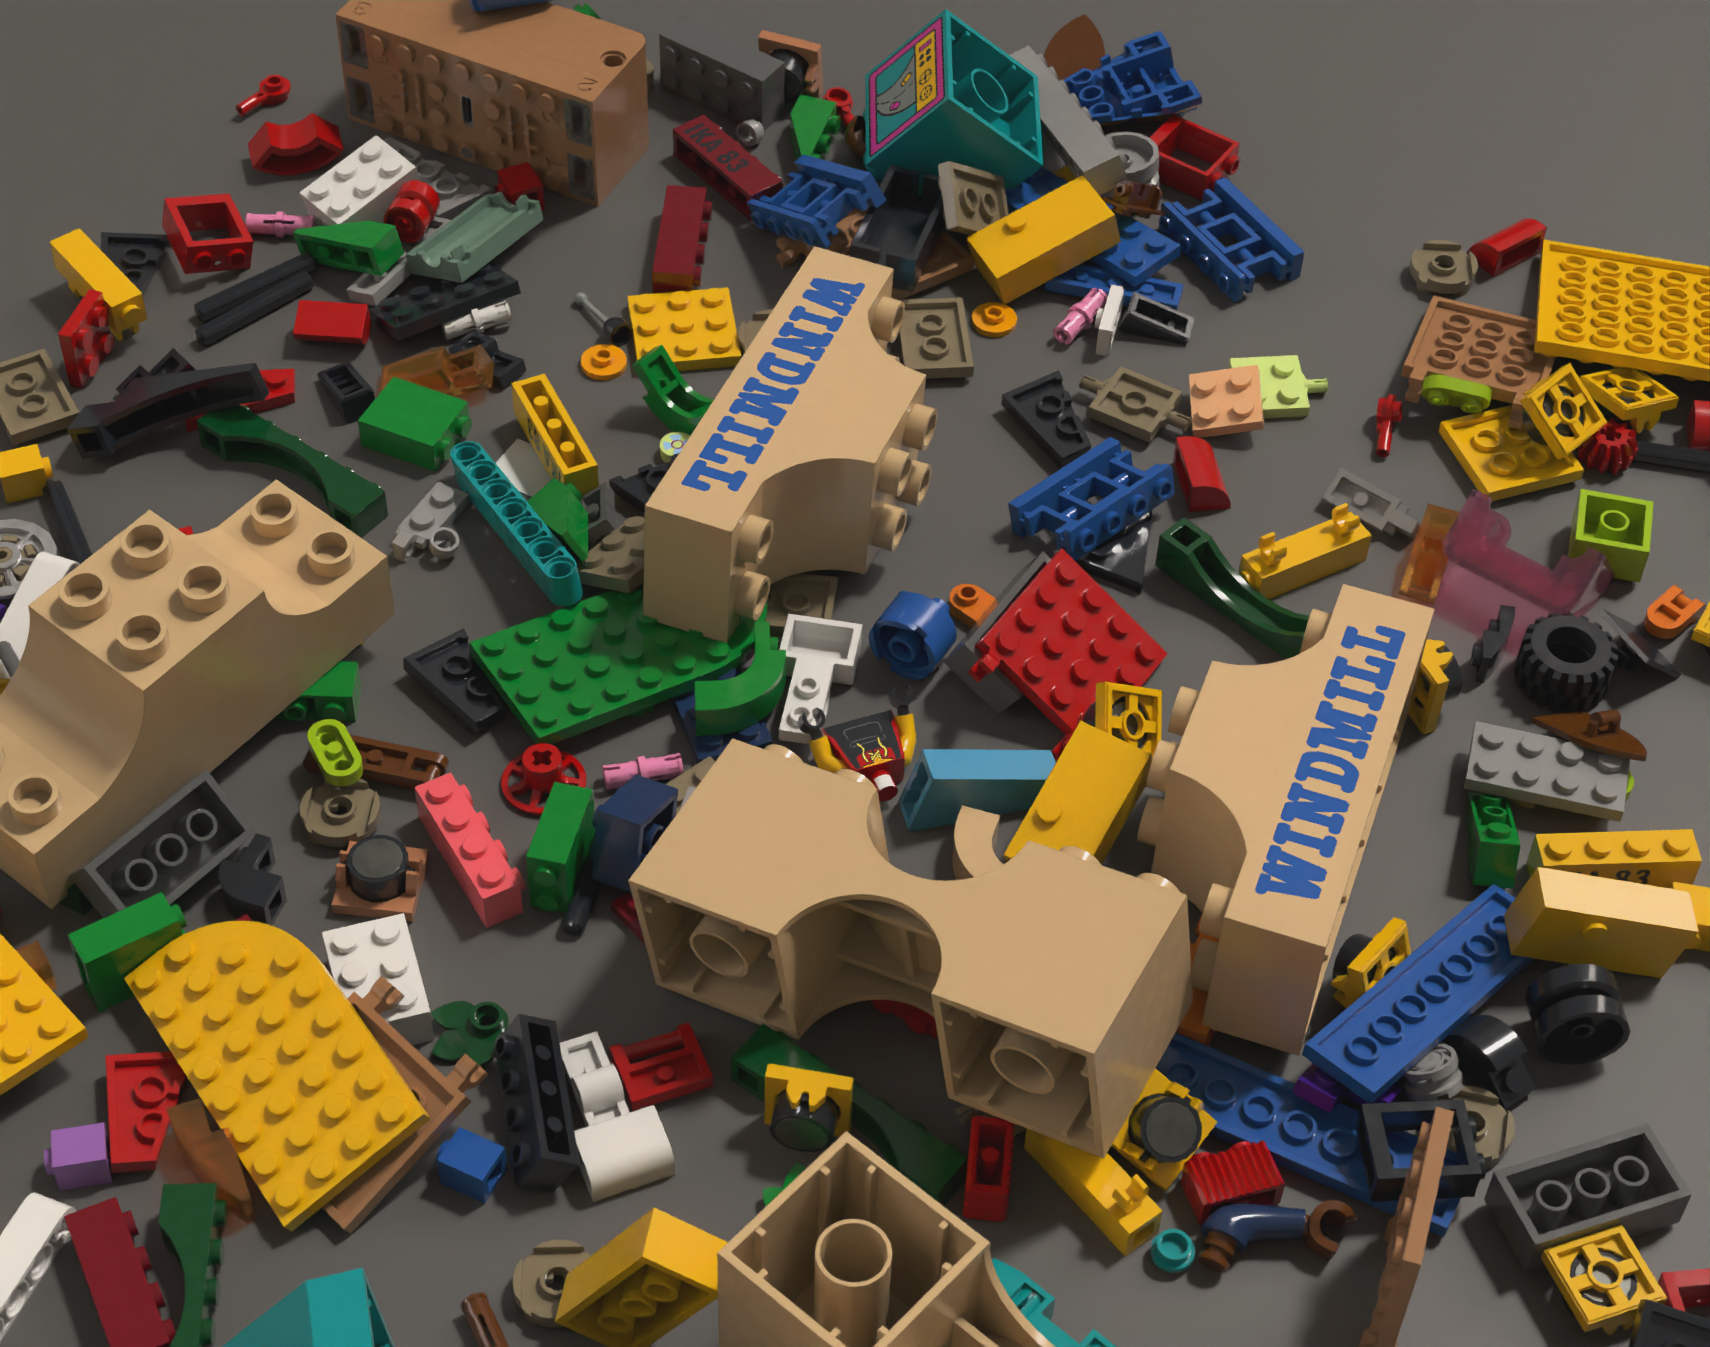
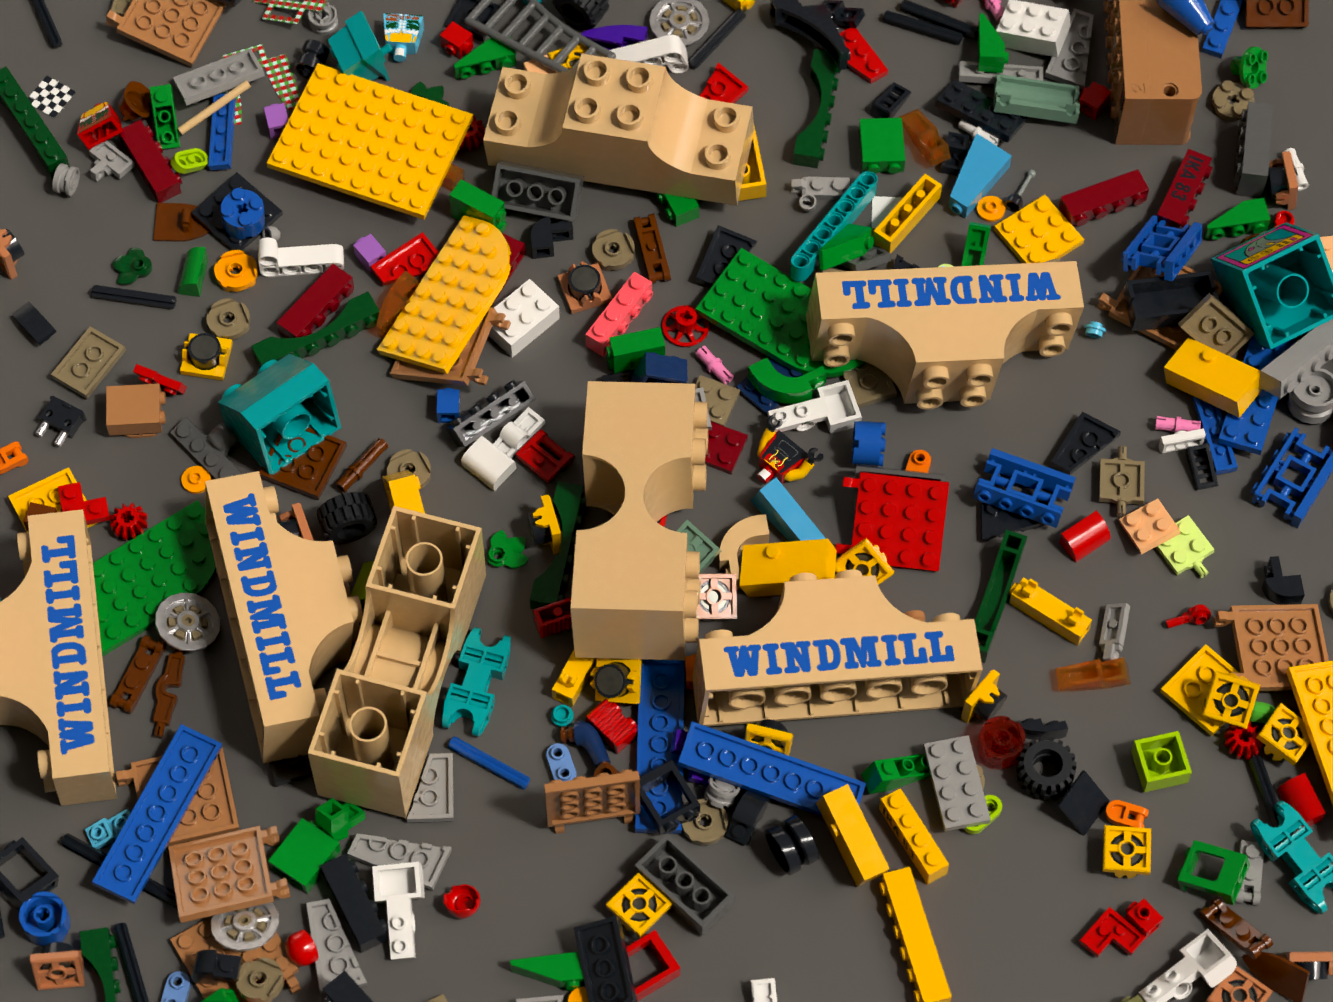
camera: 65 degrees right, 15 degrees up
(332, 322) = (929, 69): red brick -> none
(339, 759) = (636, 228): lime plate -> none
(412, 210) = (1029, 58): red wheel -> none
(465, 1030) = (518, 368): dark green plate -> none
(547, 344) = (979, 173): none -> dark azure slope
(747, 129) = (1225, 189): light grey hinge -> none
(936, 338) = (1109, 358): dark tan plate -> none
(994, 319) = (1151, 383): light orange piece -> none
(1136, 199) = (1276, 411): reddish brown hinge -> none
(1268, 1295) = (560, 764): none -> medium blue plate
(1385, 321) = (1280, 588): none -> black brick
(1452, 391) = (1221, 633): lime plate -> none
(1479, 545) = (1101, 719): clear pink windscreen -> none
(1500, 690) = (1012, 740): none -> clear red brick
(1594, 731) = (996, 797): reddish brown shield -> none

